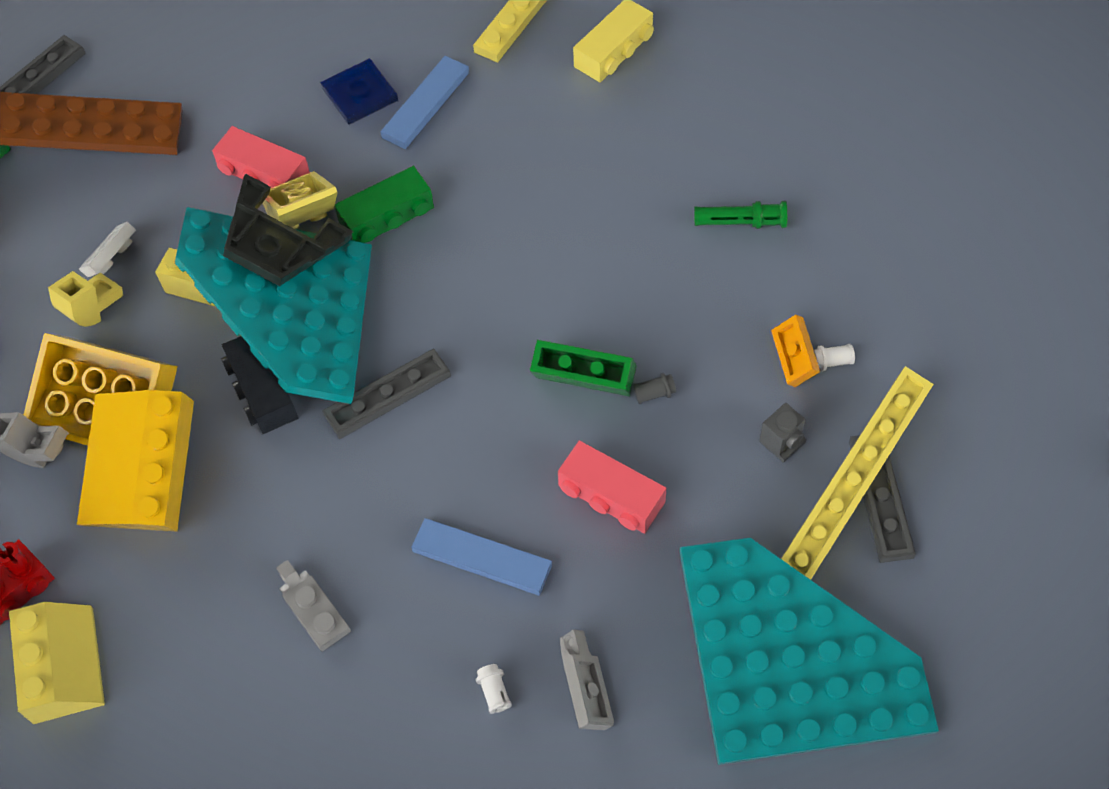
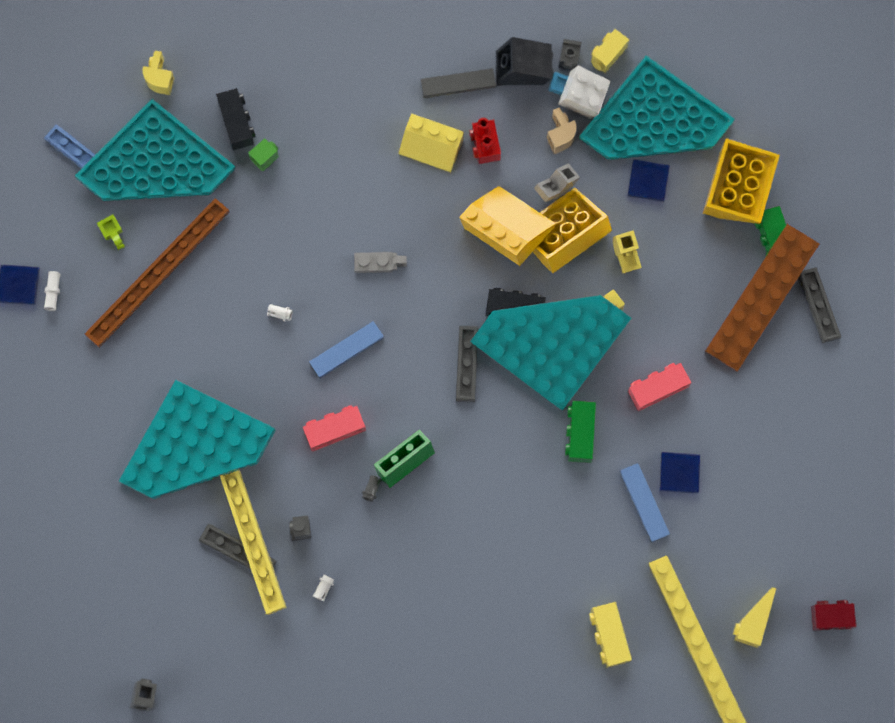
camera: 120 degrees right, 15 degrees up
(115, 242) = (655, 279): white plate -> none
(271, 246) = (578, 345): pearl dark grey wing -> none
(301, 200) = (606, 382): light yellow slope -> none
(585, 683) = (252, 351): light grey hinge -> none
(757, 215) = (434, 618): green pin -> none
(795, 351) = (339, 570): light orange plate -> none

